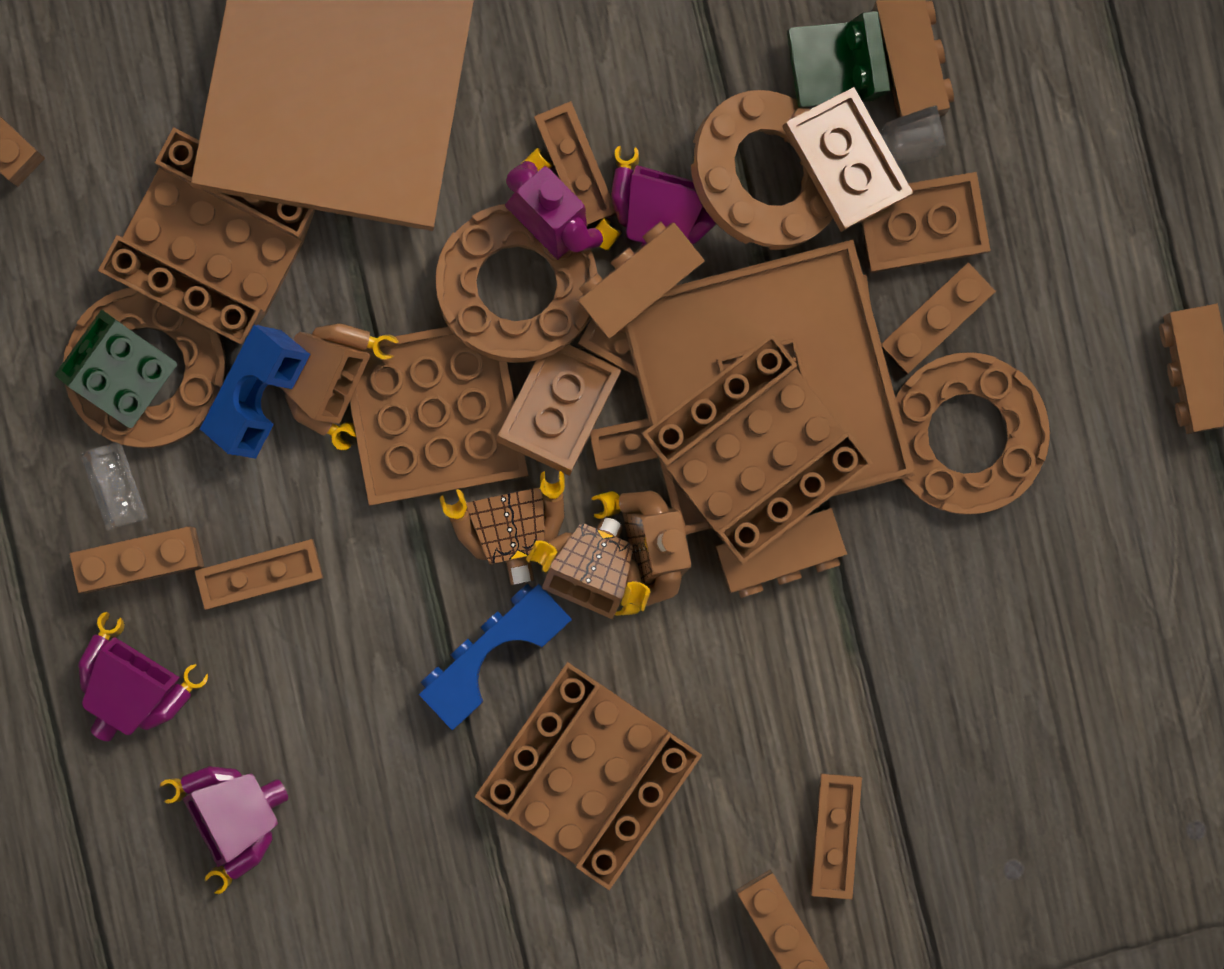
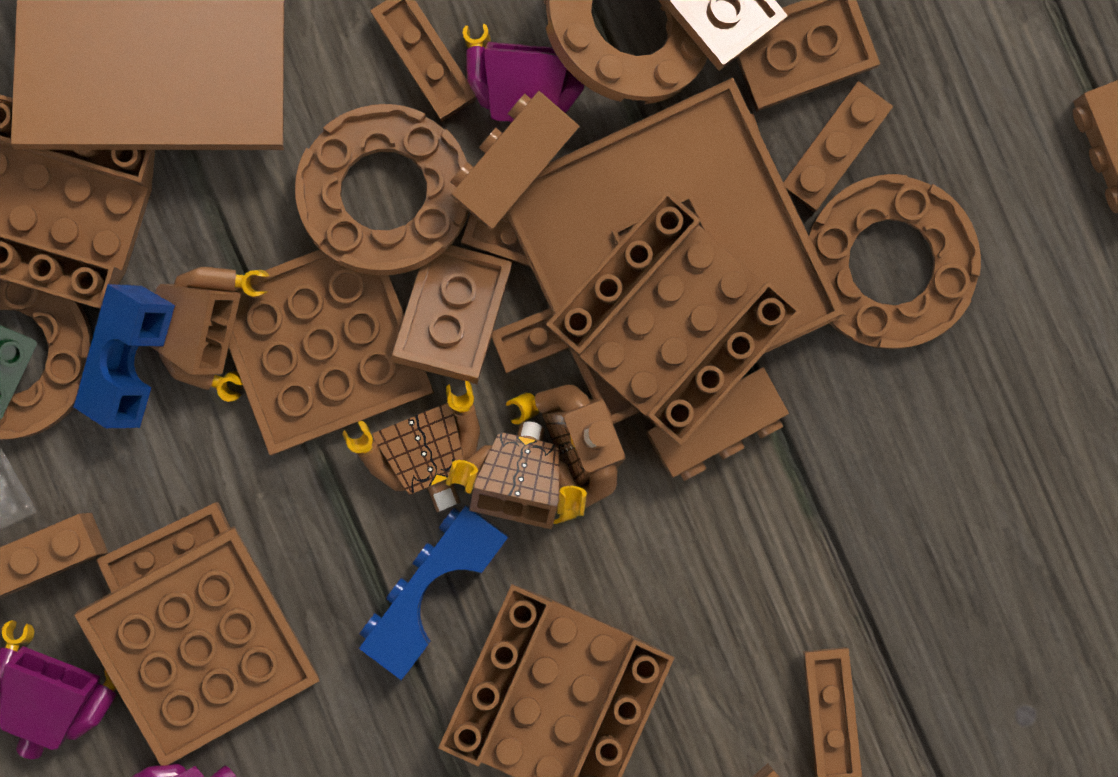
camera: 10 degrees left, 0 degrees up
(273, 666) = (197, 646): none -> medium nougat plate
(553, 210) = (408, 104): magenta torso -> none

